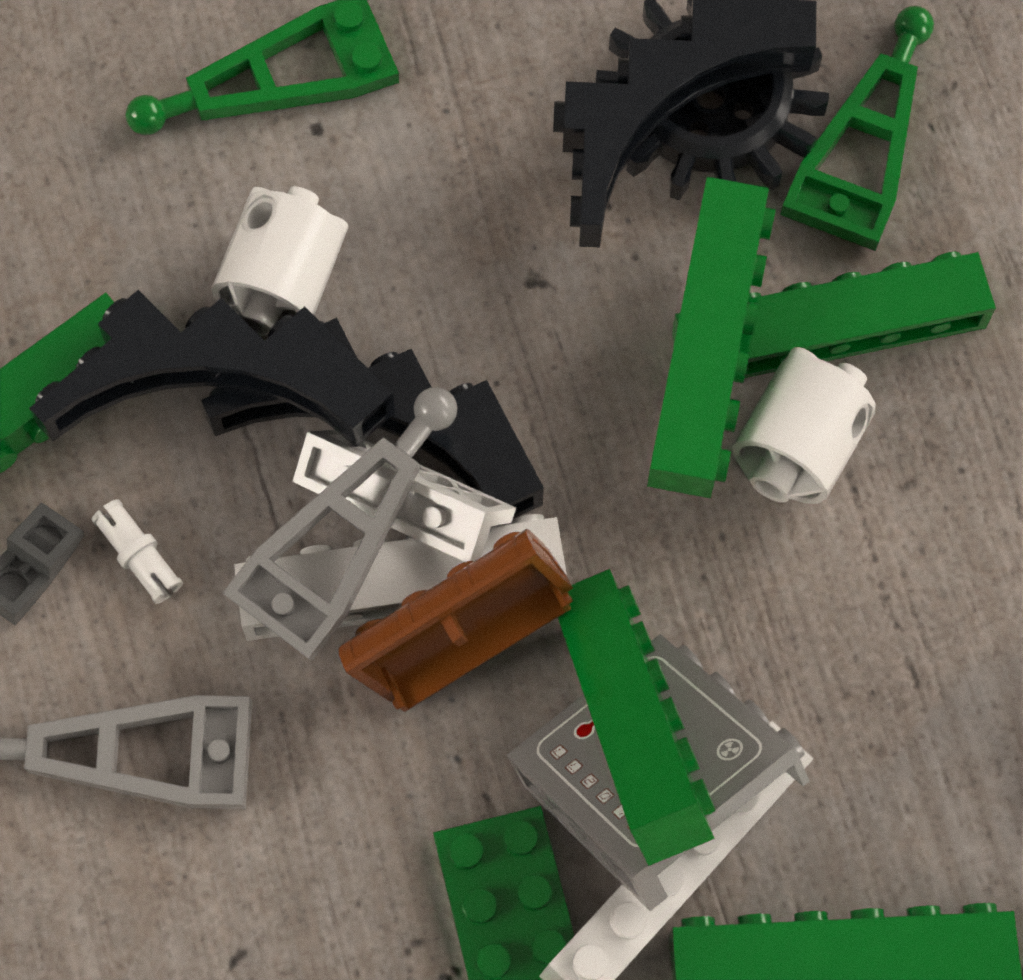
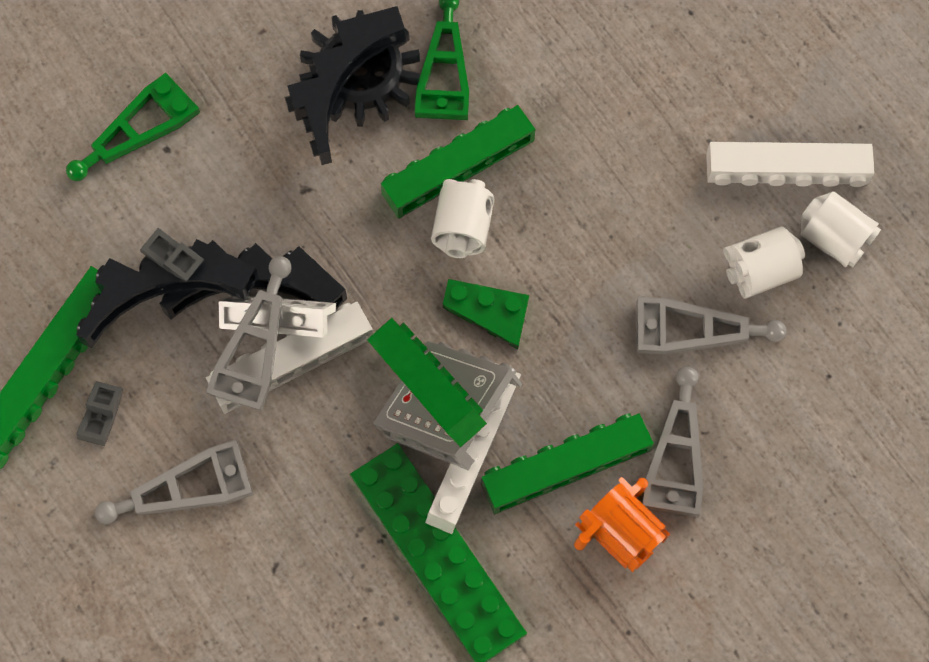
camera: 20 degrees left, 0 degrees up
(137, 551) = (153, 388): white pin -> none
(249, 321) = (171, 255): none -> dark grey slope
(279, 257) = (175, 212): white cylinder -> none
(459, 621) = (327, 367): dark orange container -> none
(709, 337) = (401, 189): green brick -> none
(796, 611) = (490, 308): none -> green wing

